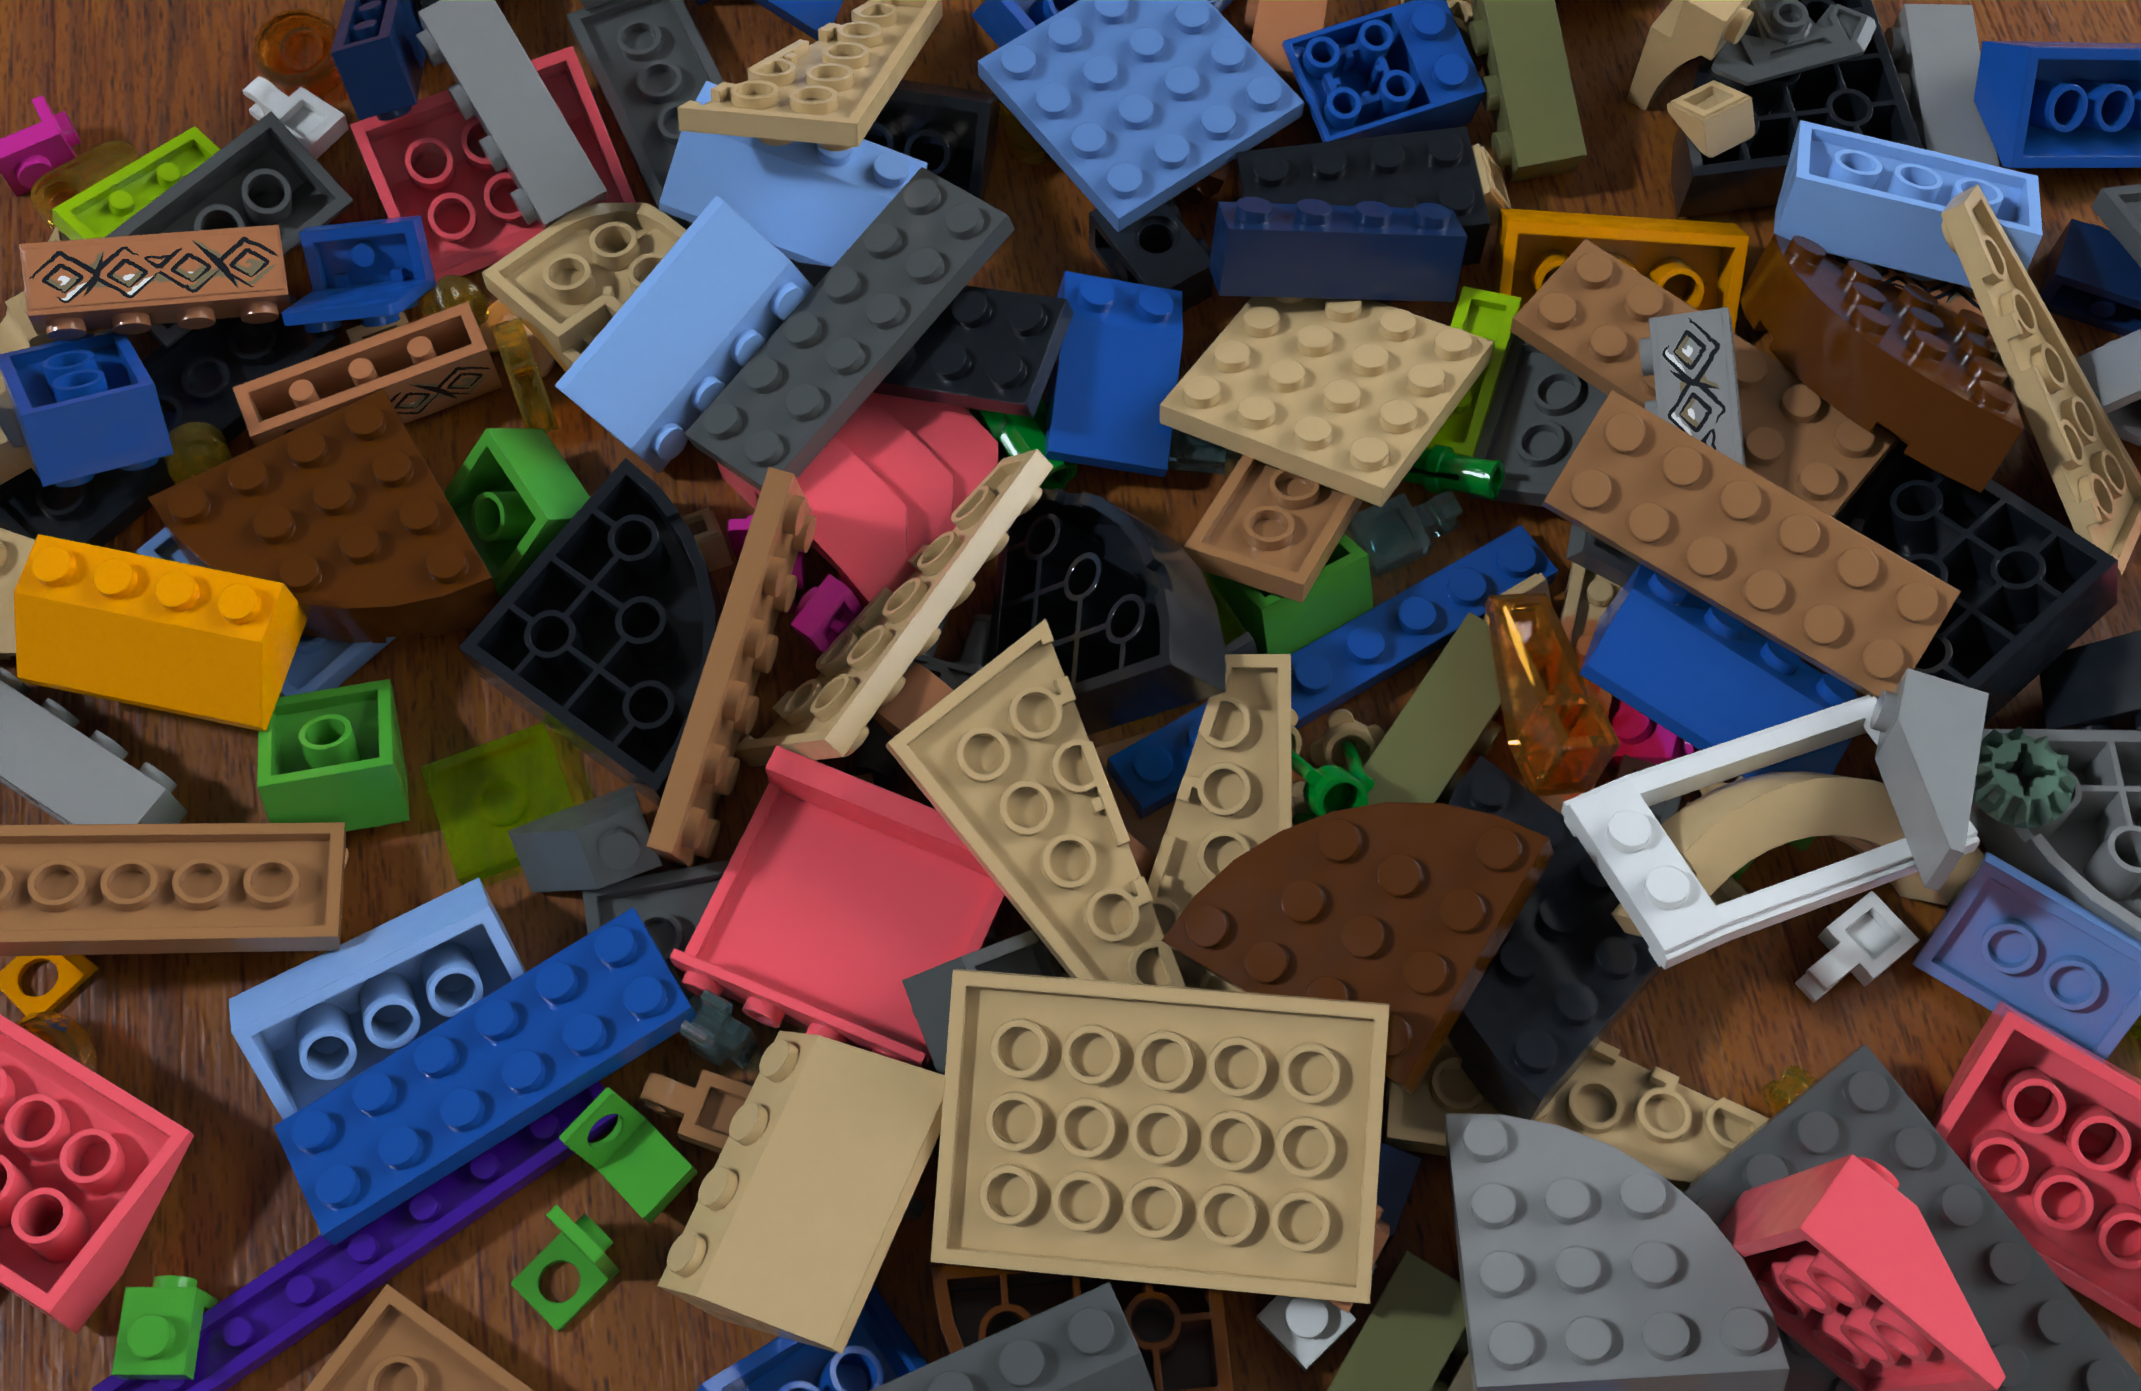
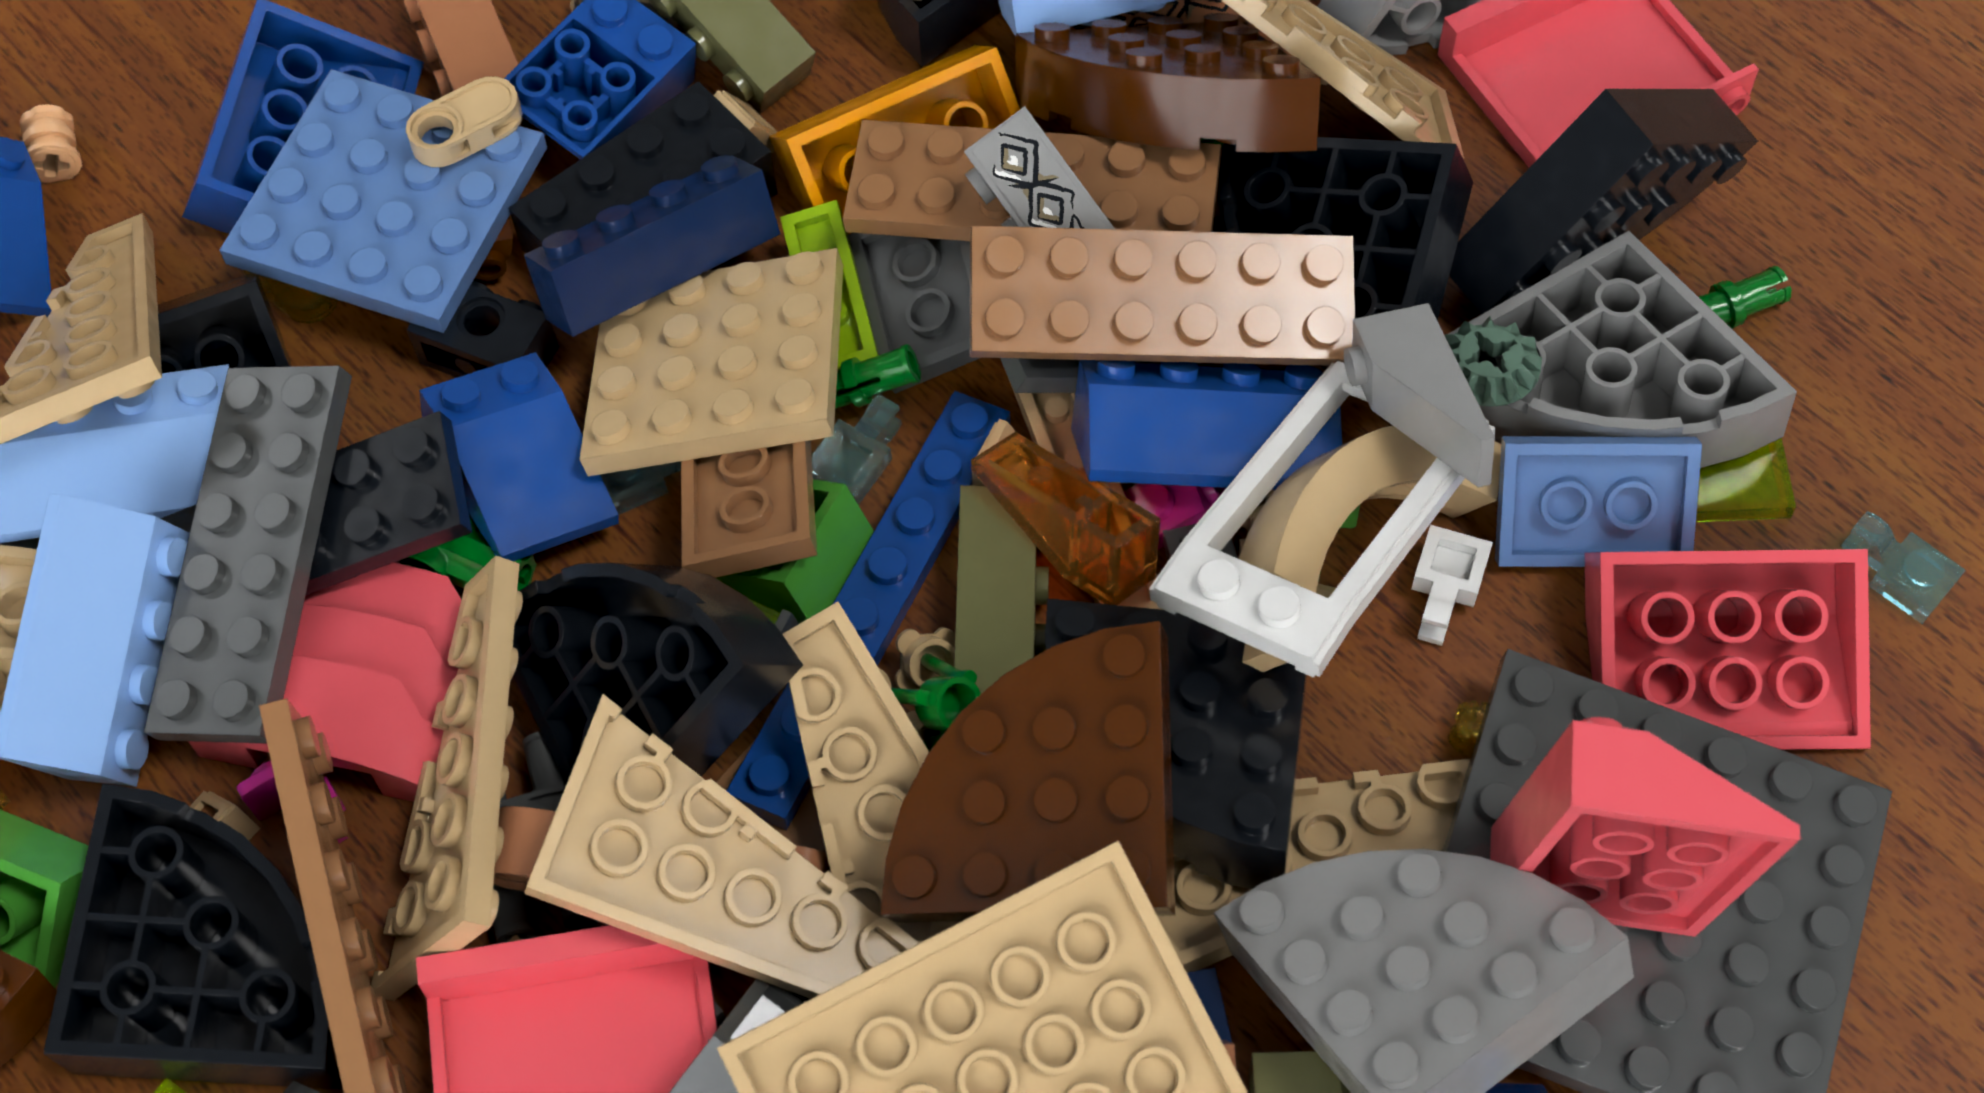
camera: 30 degrees left, 5 degrees down
(825, 613) = (383, 818): dark pink bracket -> none
(1255, 56) = (475, 113): none -> tan piece

